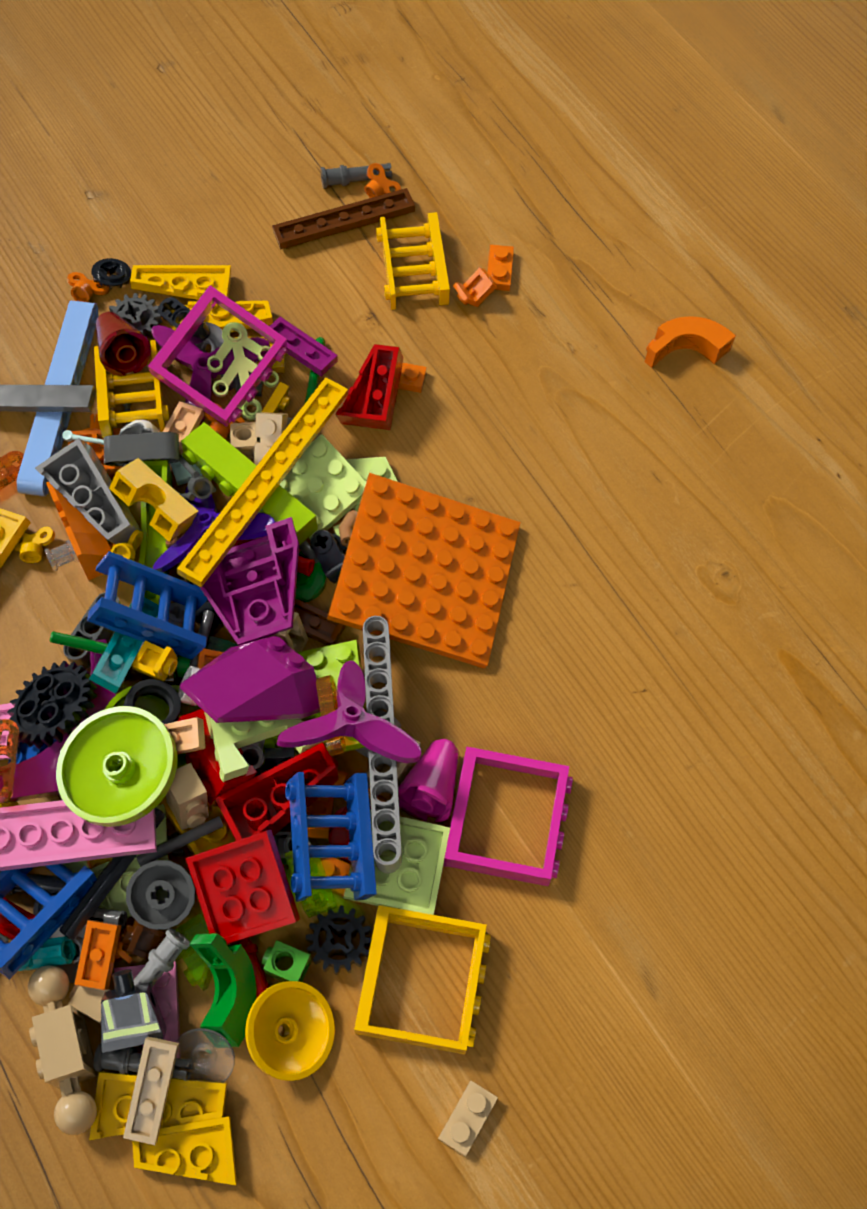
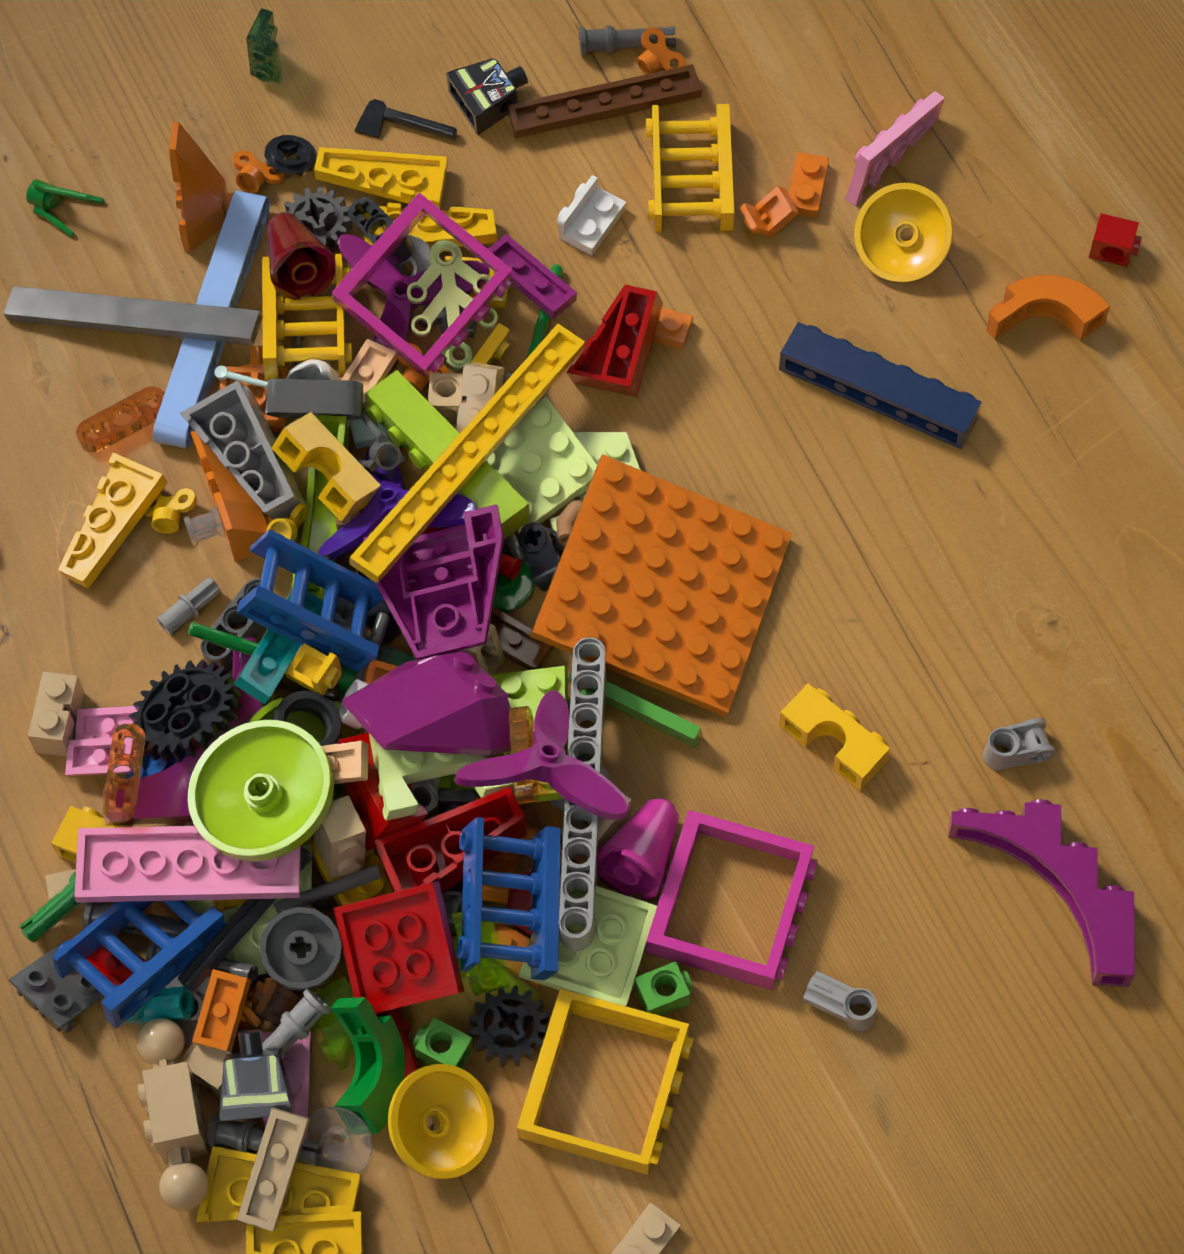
camera: 10 degrees right, 0 degrees up
(40, 298) = (199, 190): none -> orange wedge
(53, 618) = (188, 606): none -> light grey axle
(85, 196) = (263, 48): none -> clear green bracket
(174, 239) = (376, 112): none -> black piece
(254, 217) = (485, 91): none -> torso
(341, 301) = (589, 216): none -> white bracket
(424, 671) = (648, 714): none -> bright green piece
(455, 908) = (662, 1005): none -> bright green brick
(556, 660) = (815, 714): none -> yellow arch
(558, 234) = (892, 144): none -> bright pink wing
(572, 406) = (880, 385): none -> dark blue brick
(575, 277) = (886, 218): none -> yellow dish
(602, 890) = (839, 998): none -> light grey piece
(719, 668) = (1024, 741): none -> light grey piece
(730, 289) = (1115, 240): none -> red brick
(772, 766) = (1072, 870): none -> magenta arch

